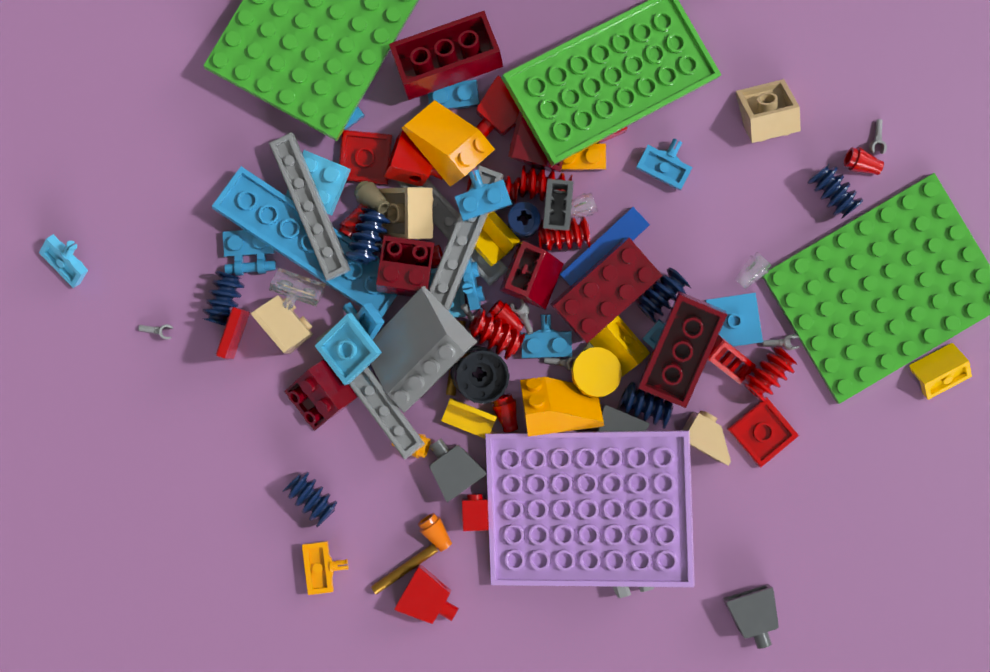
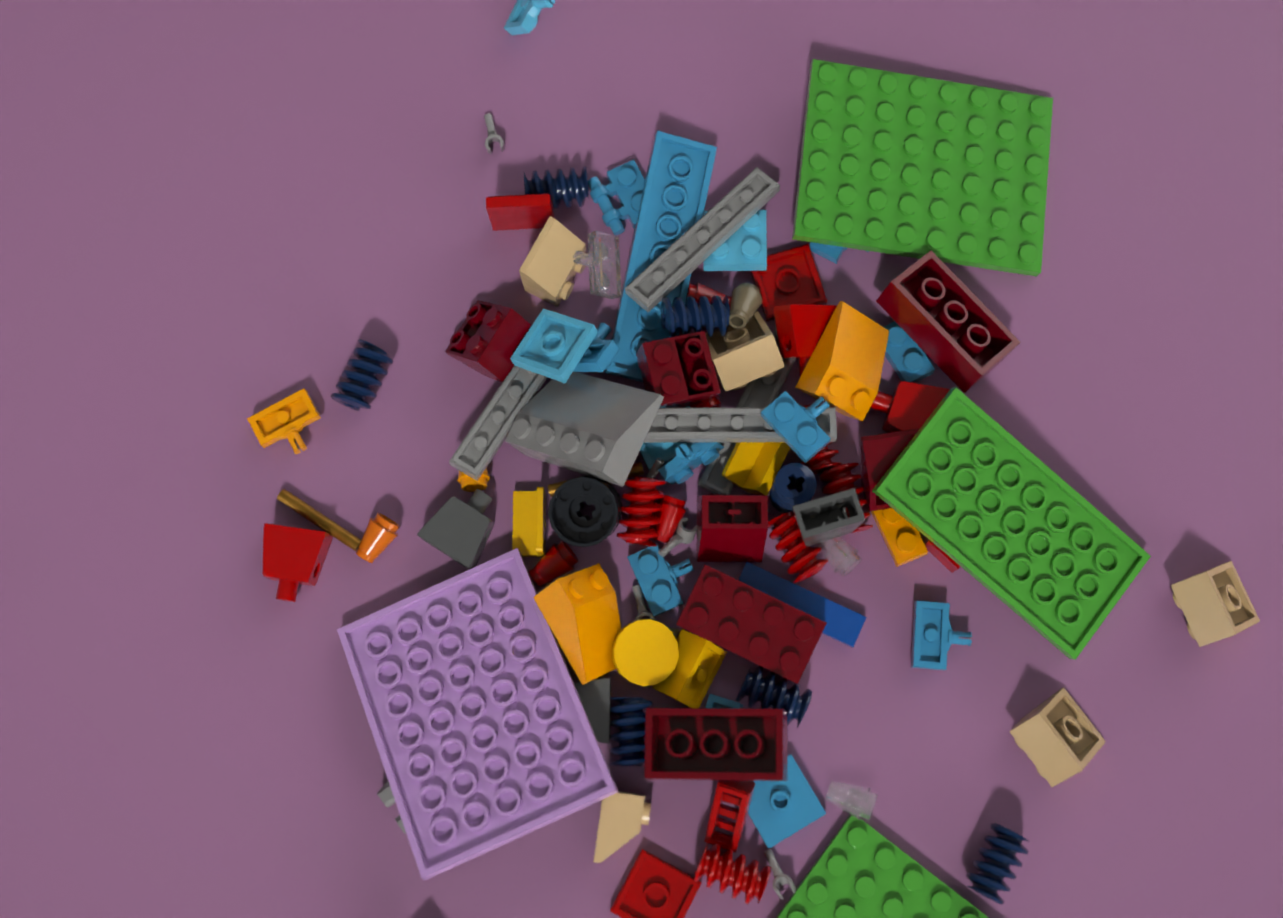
camera: 70 degrees right, 10 degrees down
(475, 513) = (416, 574): red brick -> none
(862, 161) = (1049, 884): red cone -> none
(878, 138) = (1088, 893): light grey hand -> none

